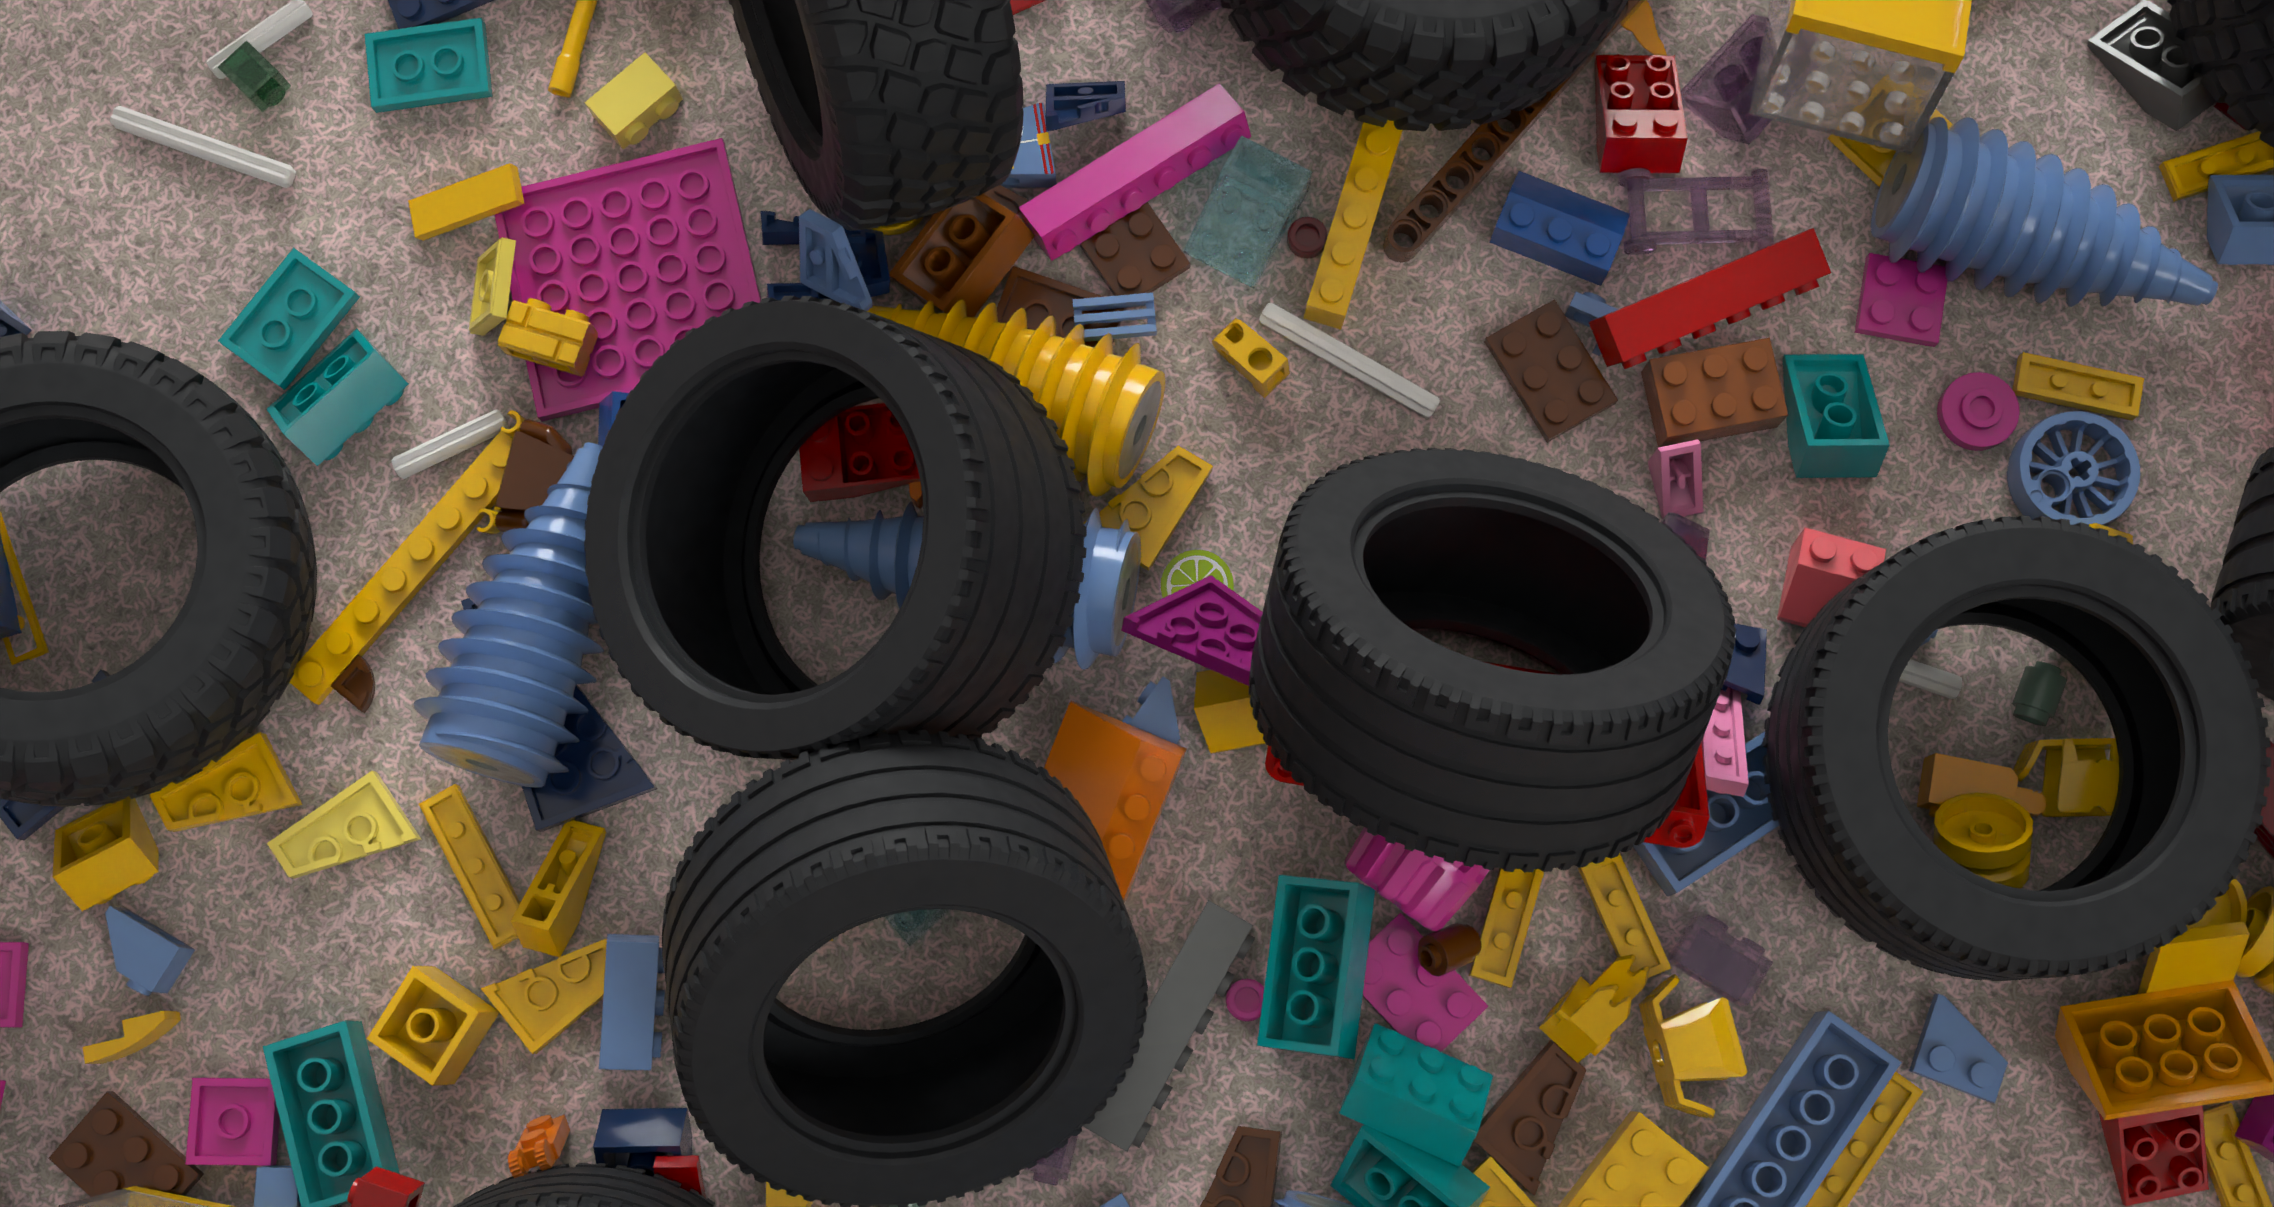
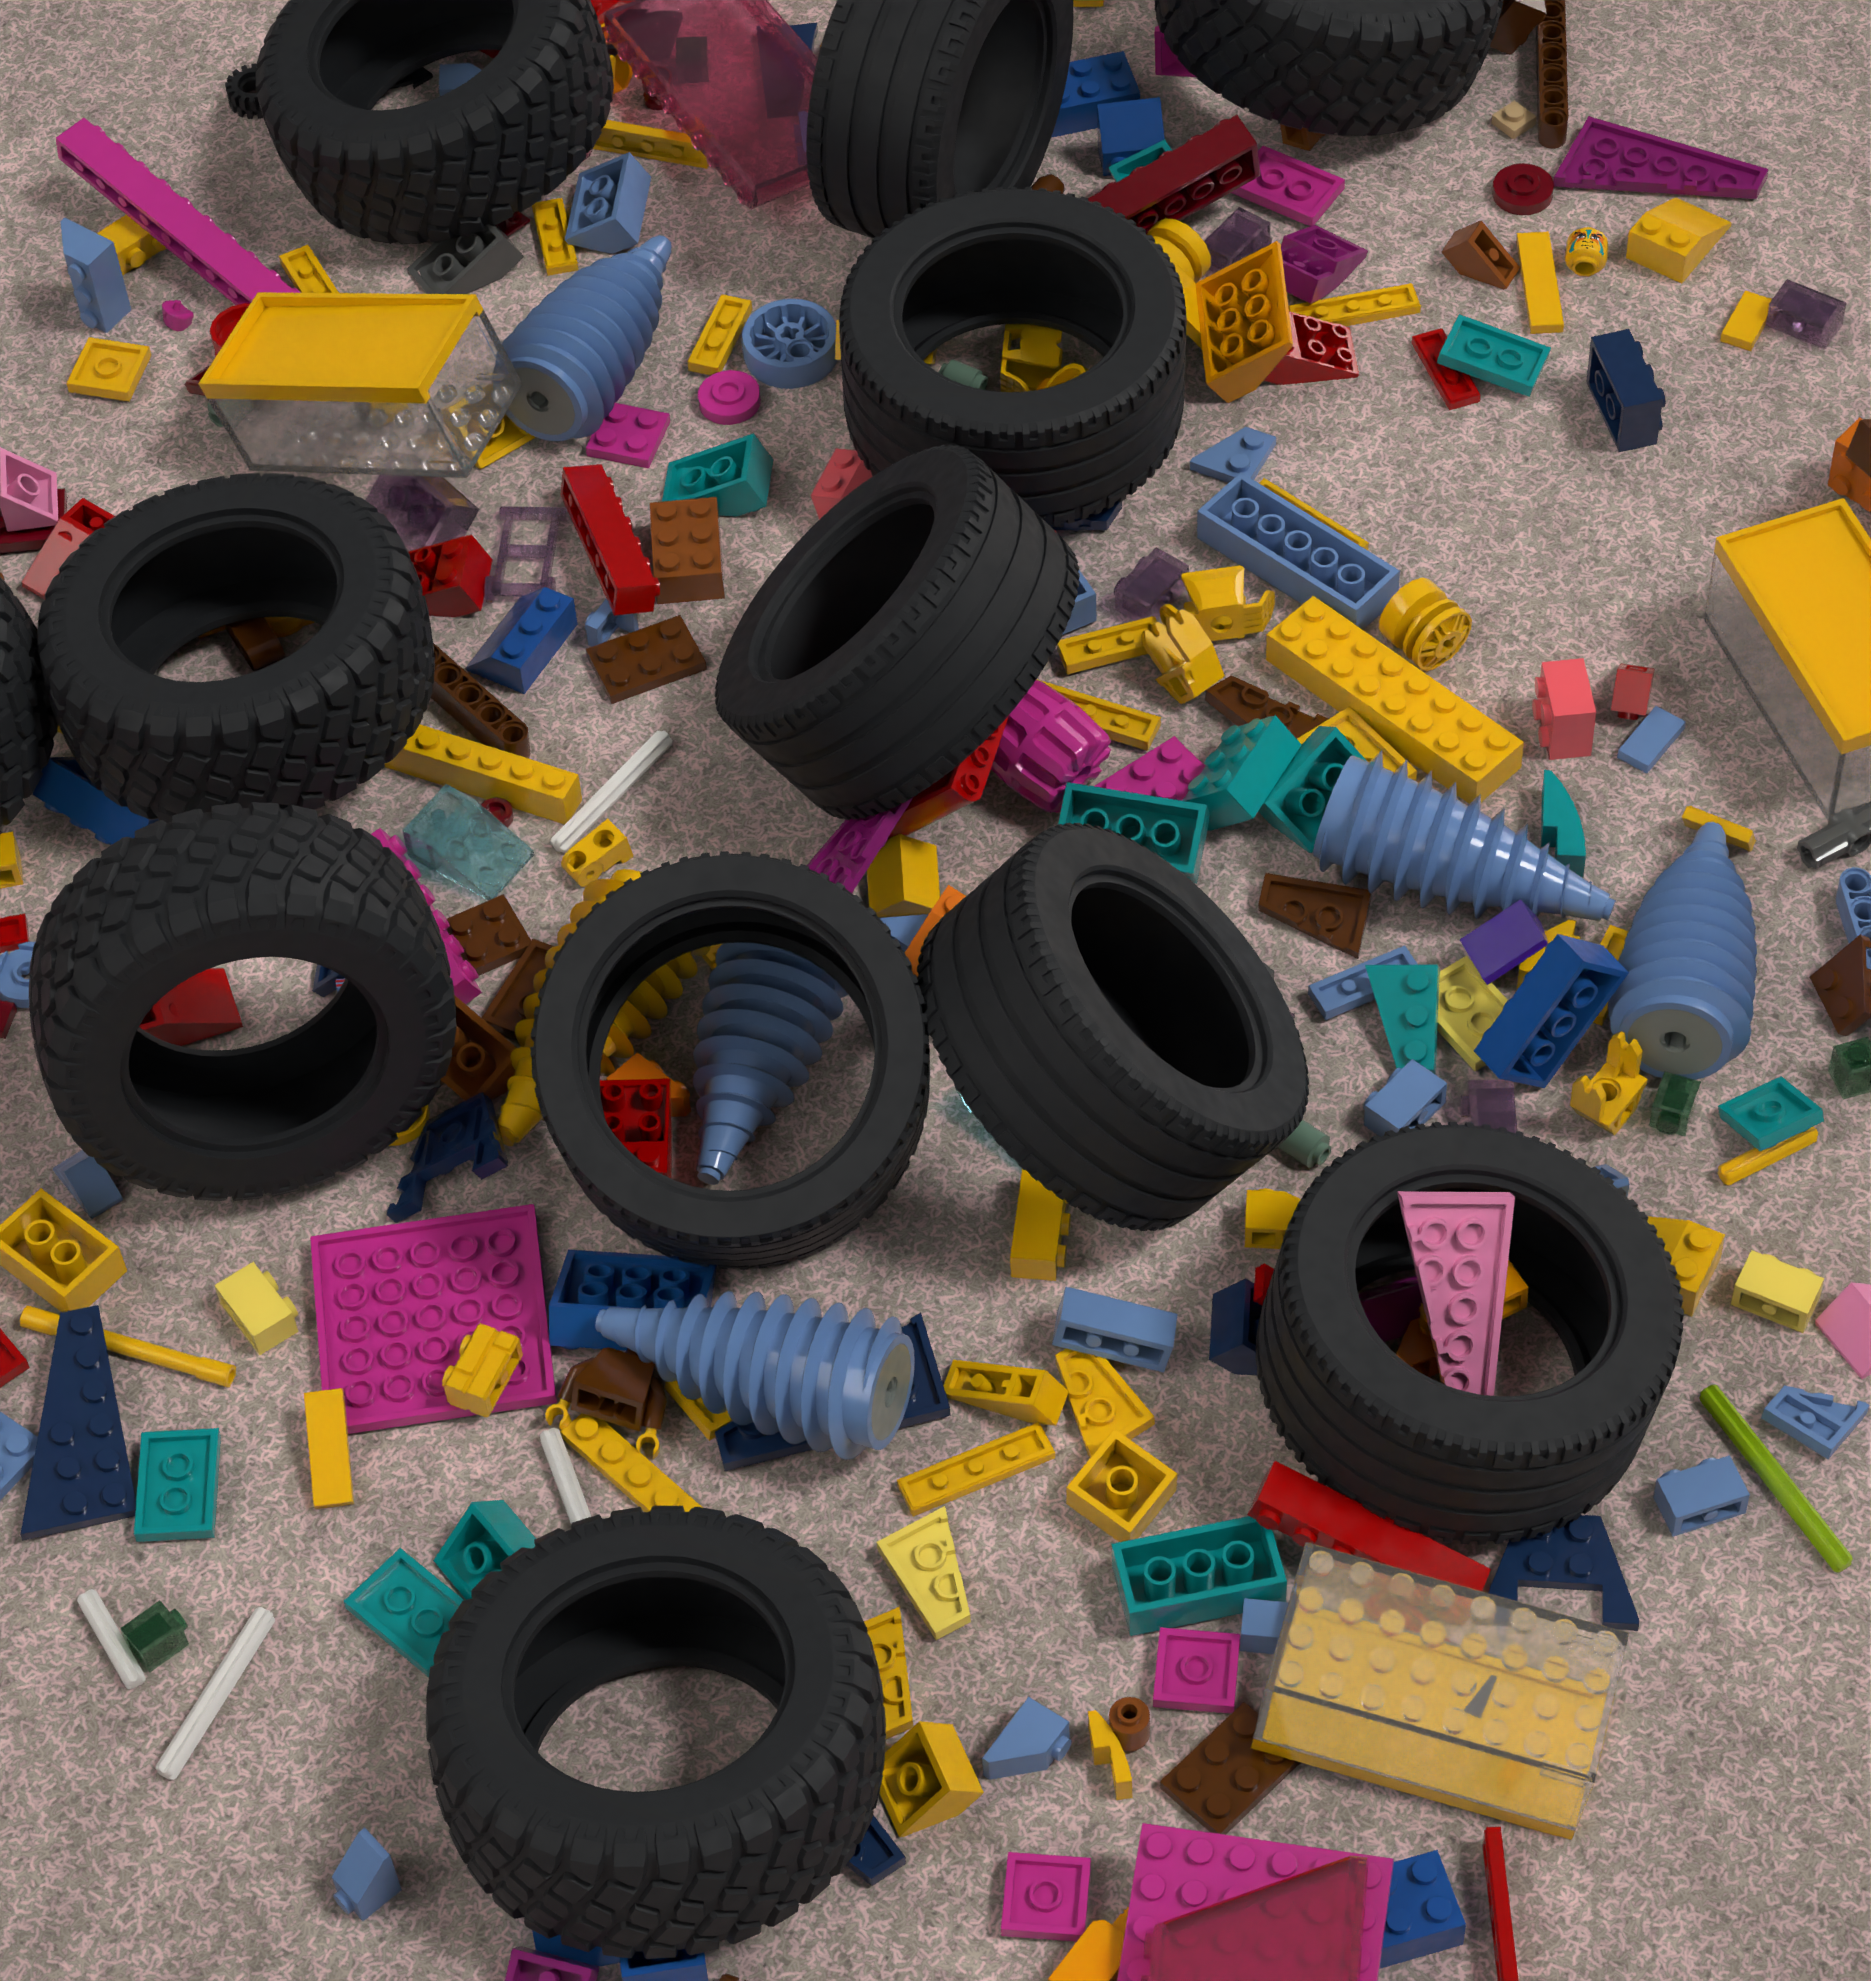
camera: 85 degrees left, 25 degrees down
(159, 1055) = (1130, 1723): none -> dark orange brick
(492, 287) = (422, 1419): light yellow tile -> none
(539, 1145) = (1238, 1393): orange hinge -> none
(829, 262) = (467, 1105): medium blue wing -> none
(1114, 302) = (546, 920): medium blue tile -> none
(1448, 949) = (1127, 748): reddish brown brick -> none
(1678, 478) = (746, 576): bright pink slope -> none

